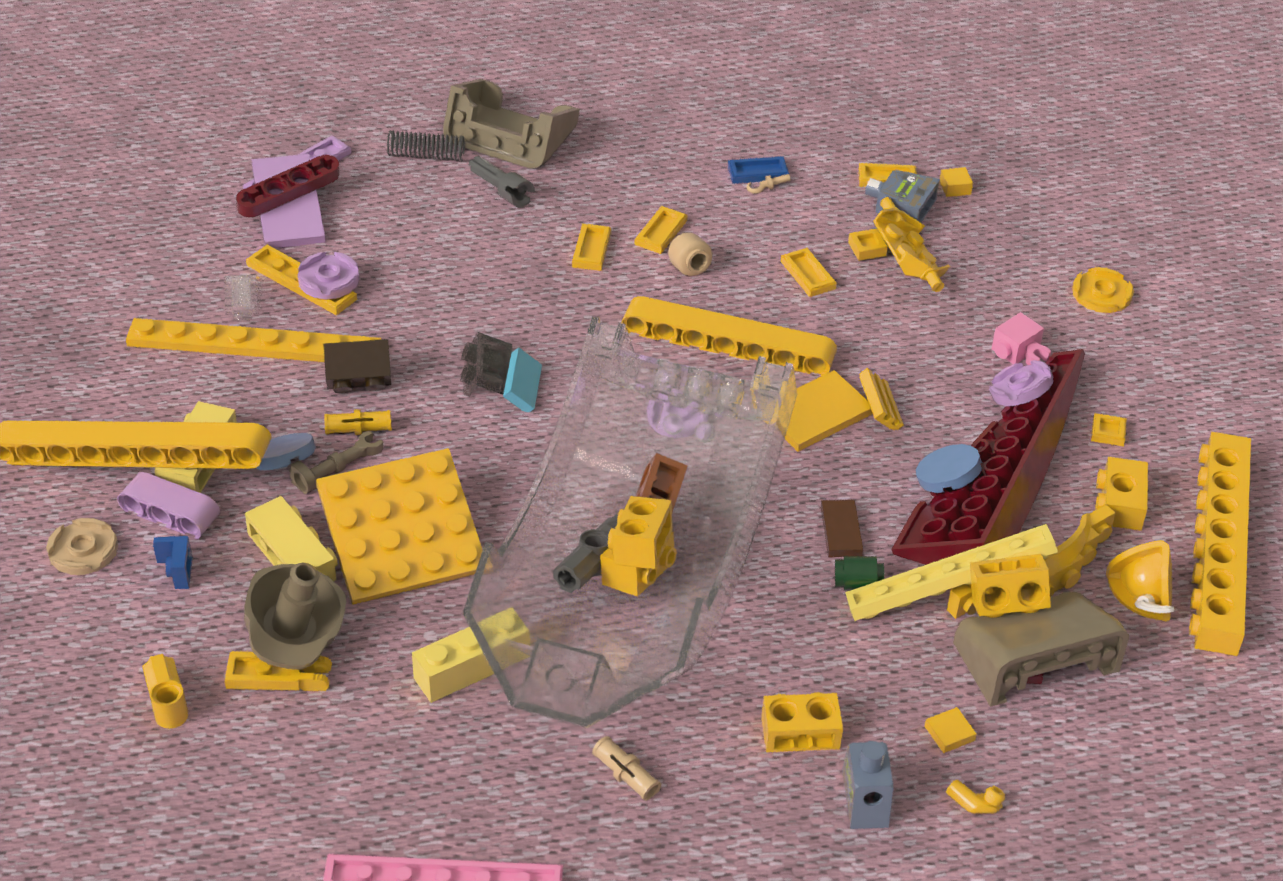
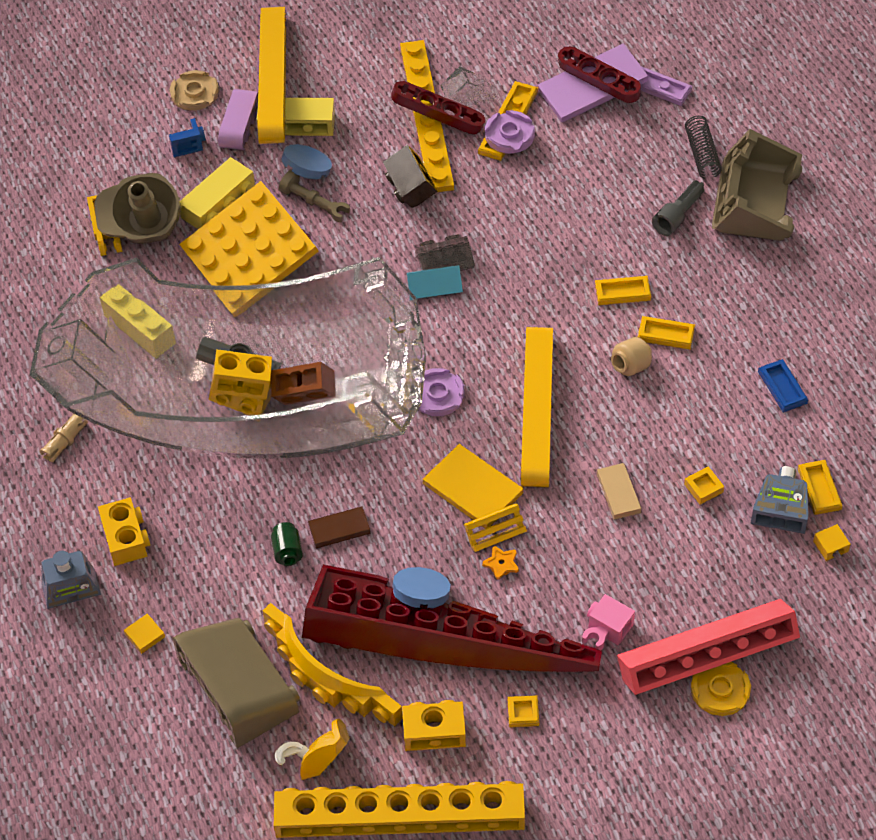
camera: 80 degrees right, 10 degrees up
(165, 691) = (65, 173): yellow piece -> none
(261, 320) = (438, 106): none -> dark red beam
(357, 422) = (357, 197): yellow pin -> none
(769, 182) = (766, 396): tan hand -> none
(808, 272) = (652, 449): yellow tile -> none
(854, 305) = (618, 491): none -> tan tile
(907, 245) = (727, 510): yellow plate -> none
(923, 414) = (501, 569): none -> light orange plate
(943, 574) = (280, 597): light yellow plate -> none
(976, 803) = (77, 658): yellow arm -> none
(1010, 577) = (261, 631): yellow brick -> none
(1021, 383) = (548, 629): lavender tile -> none
(1066, 280) = (708, 646): none -> coral brick

